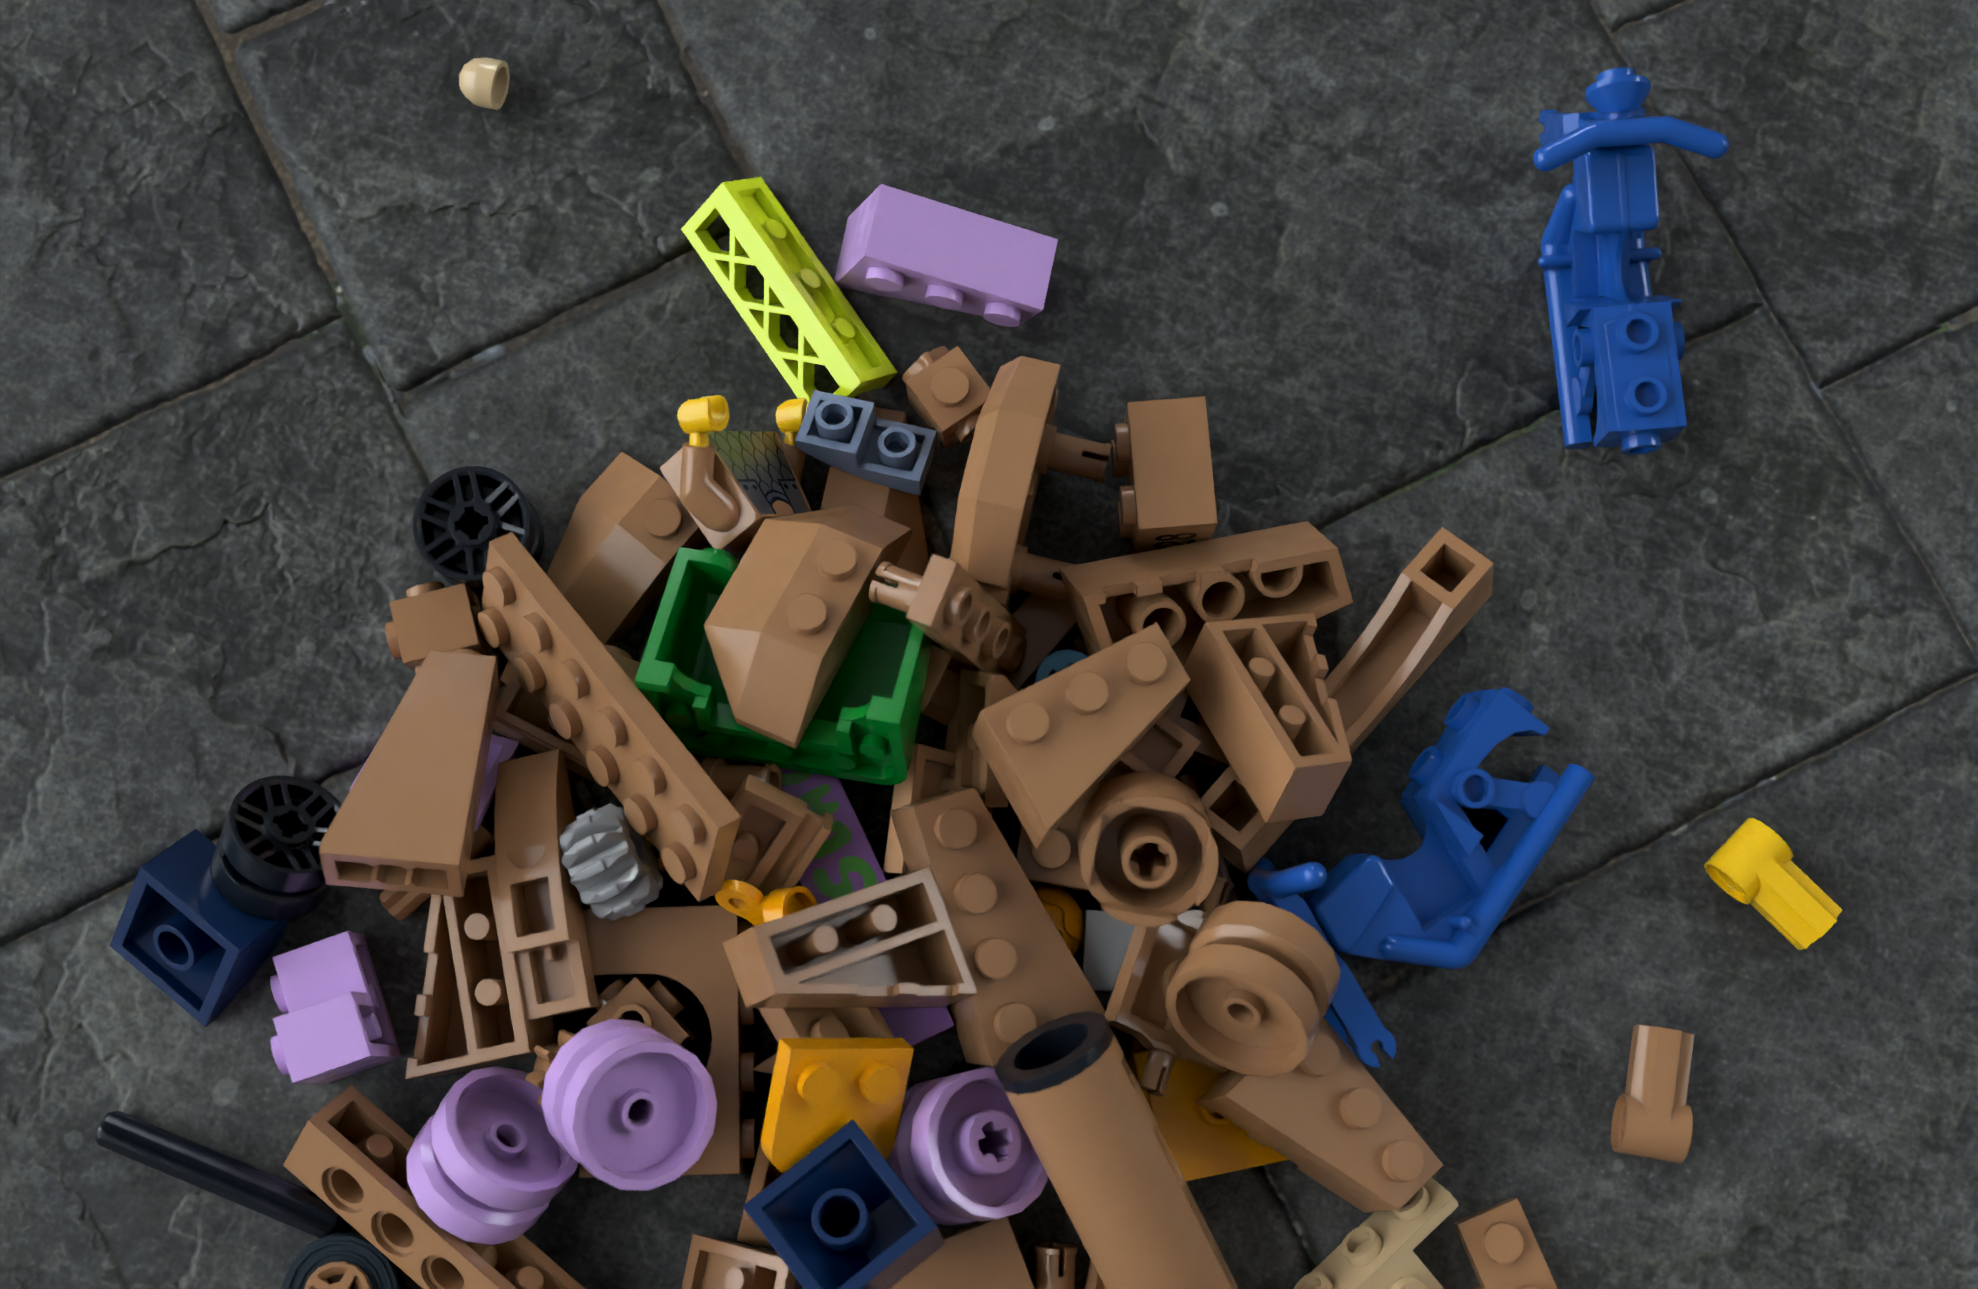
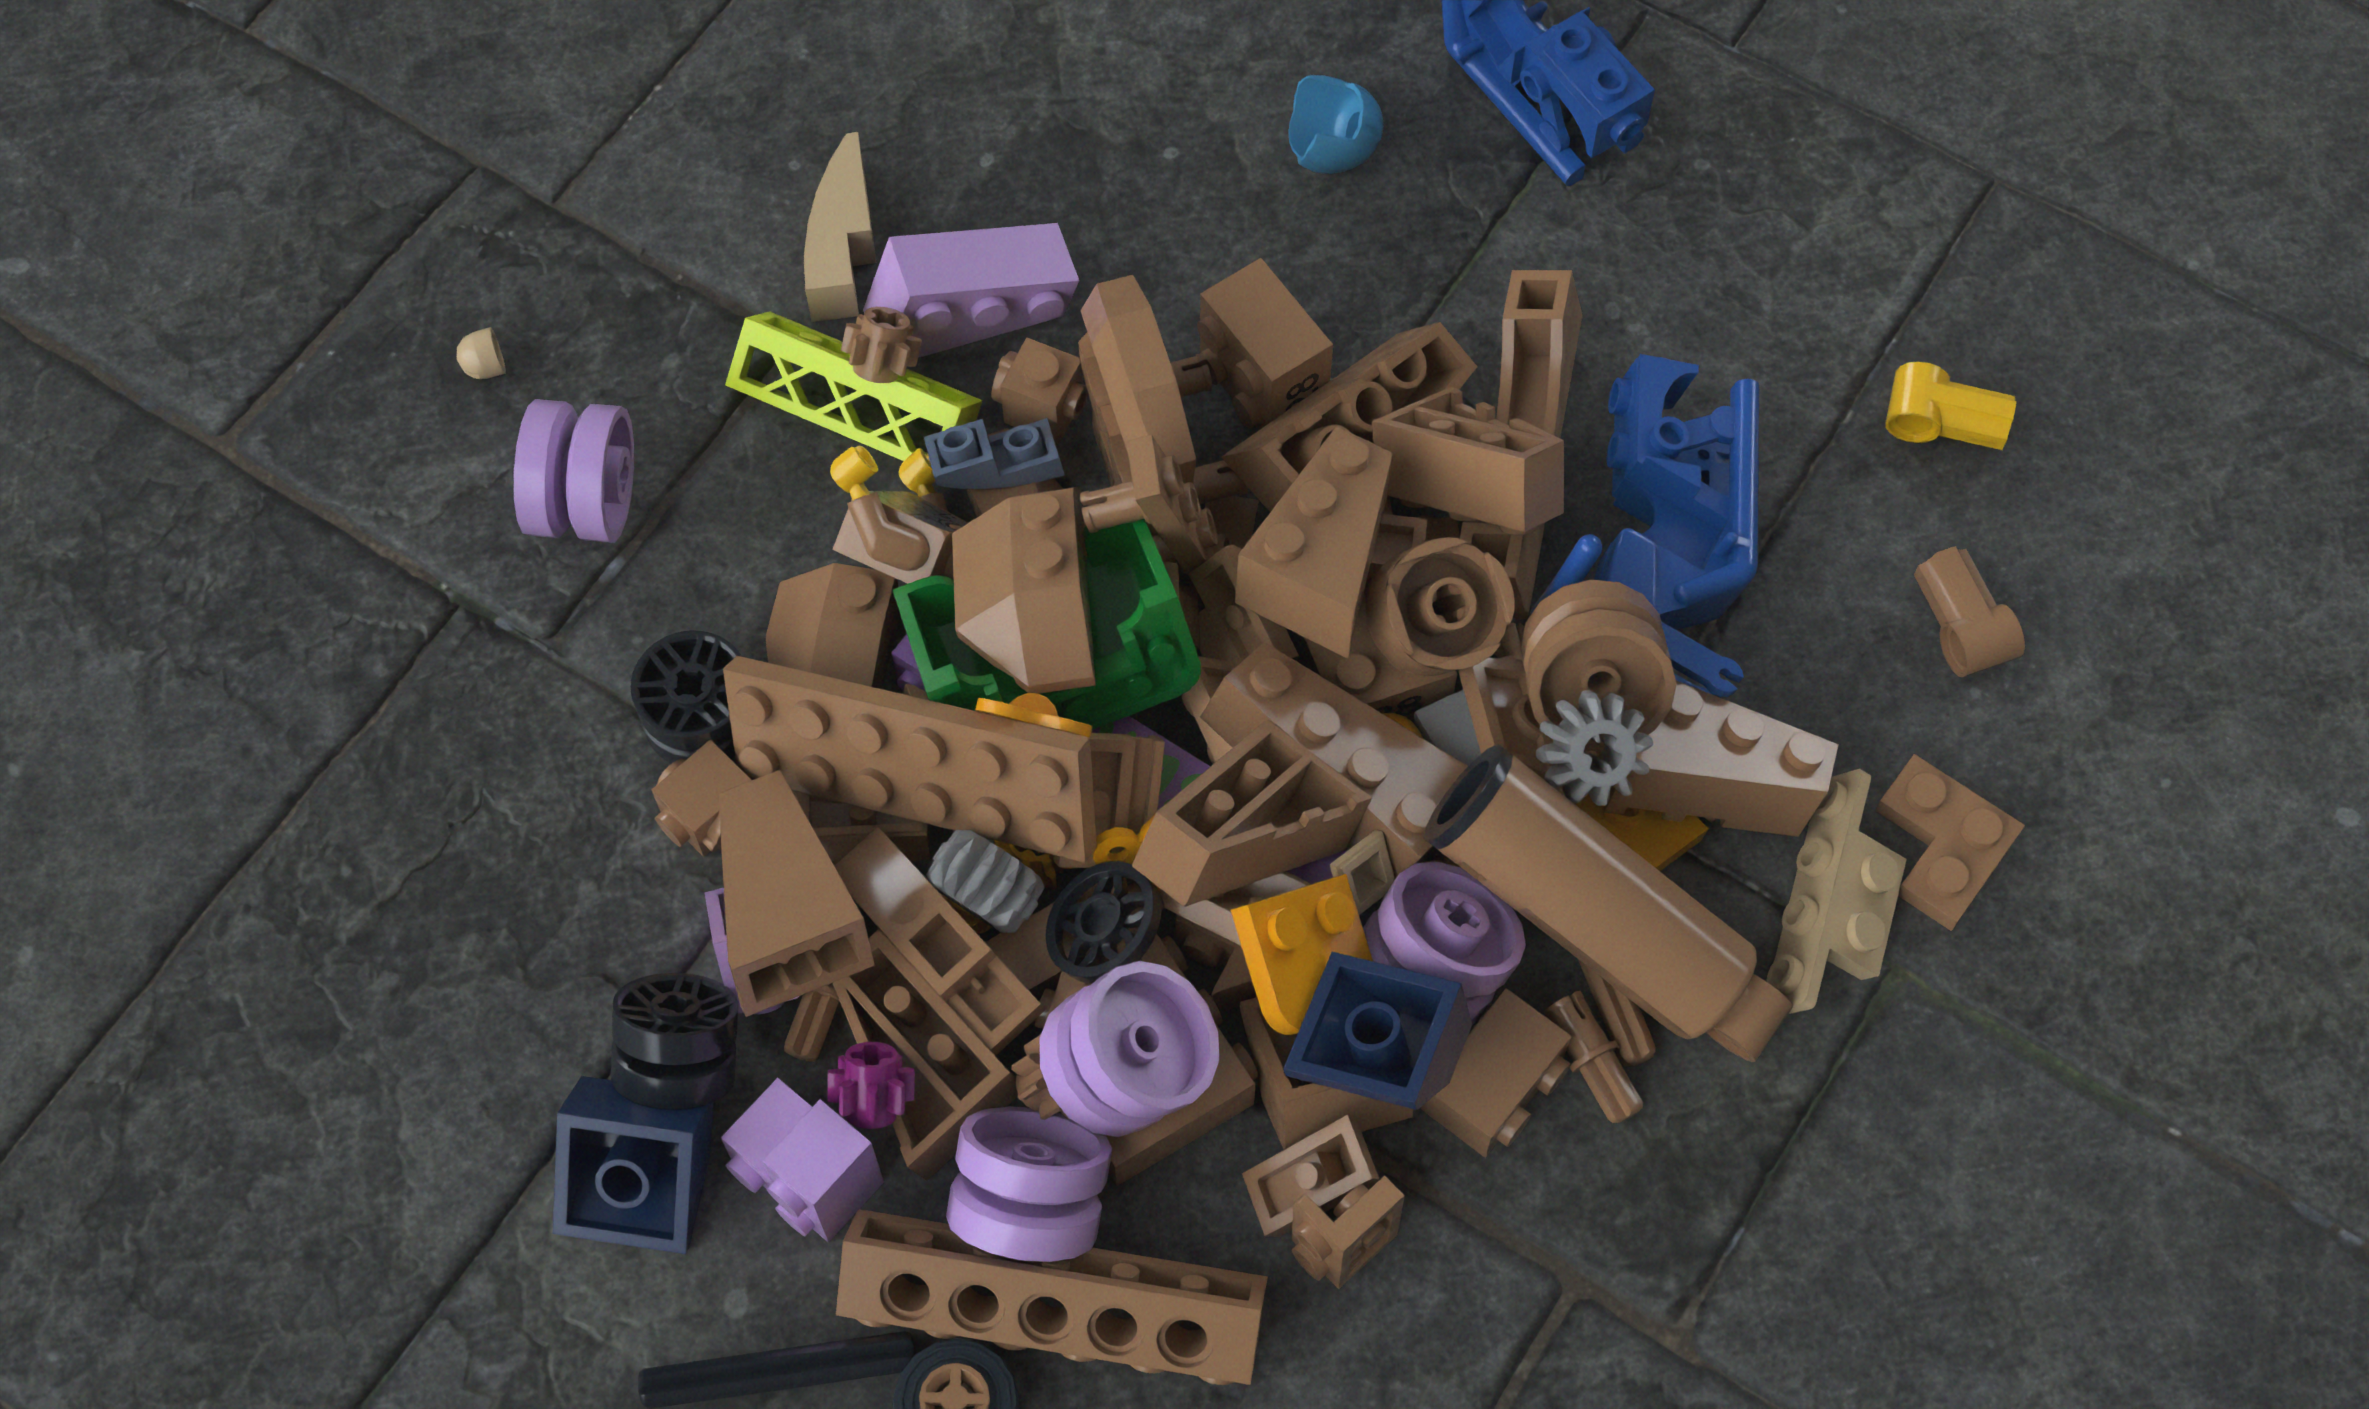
camera: 30 degrees left, 15 degrees down
(402, 1000) = (871, 1085): none -> magenta gear
(488, 254) = (574, 470): none -> lavender wheel
(682, 964) = (1103, 921): none -> black wheel
(720, 751) = (1035, 710): none -> light orange piece
(819, 284) = (881, 345): none -> medium nougat gear
(862, 133) = (838, 235): none -> tan slope
(940, 1043) = (1367, 870): none -> tan slope
(1195, 1072) = (1588, 773): none -> light grey gear
(1376, 274) = (1333, 124): none -> dark azure hair

